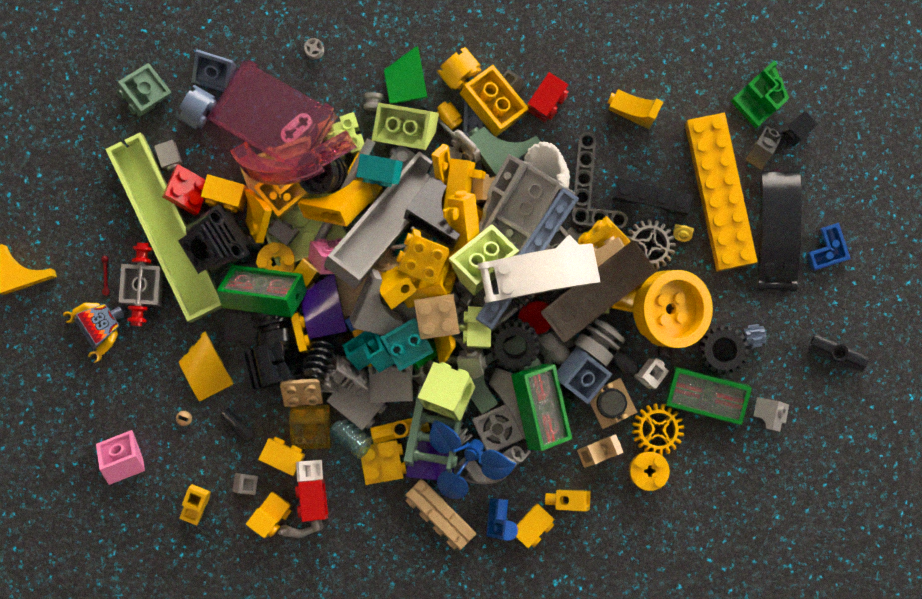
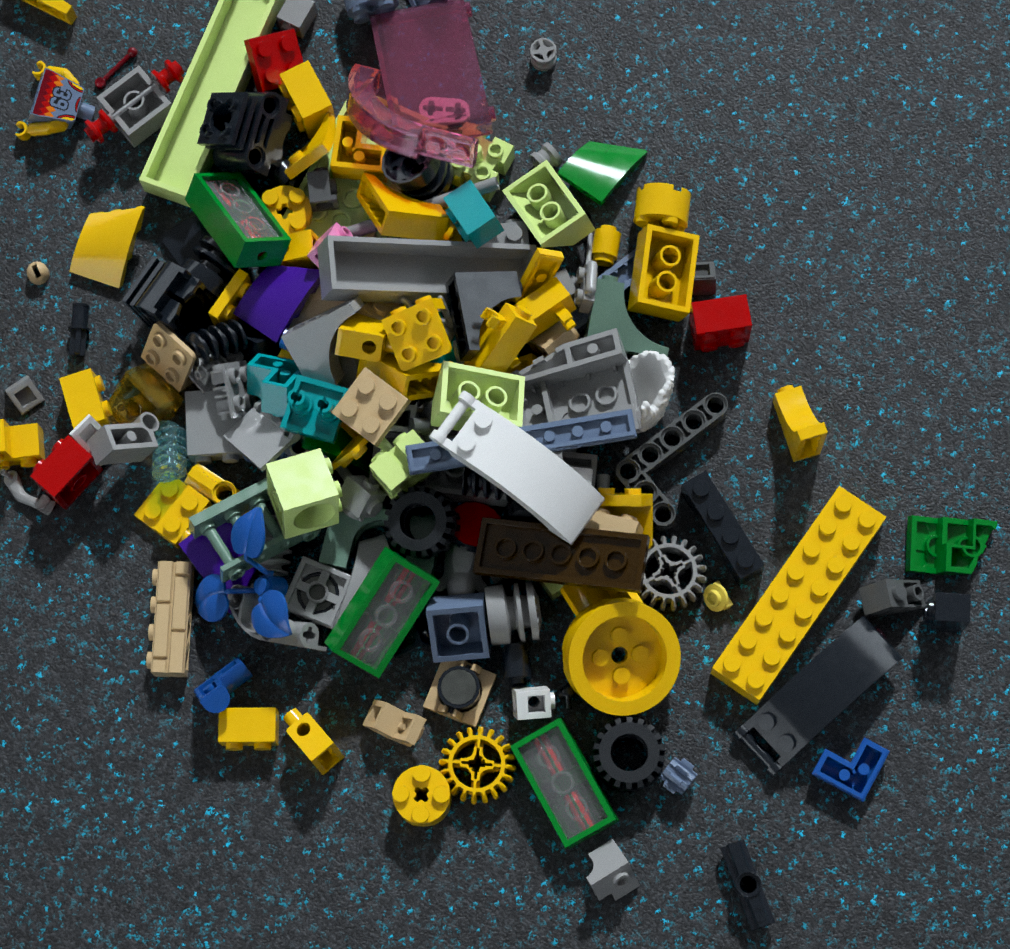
camera: 50 degrees right, 10 degrees down
(328, 456) = (125, 441): none -> light grey hinge

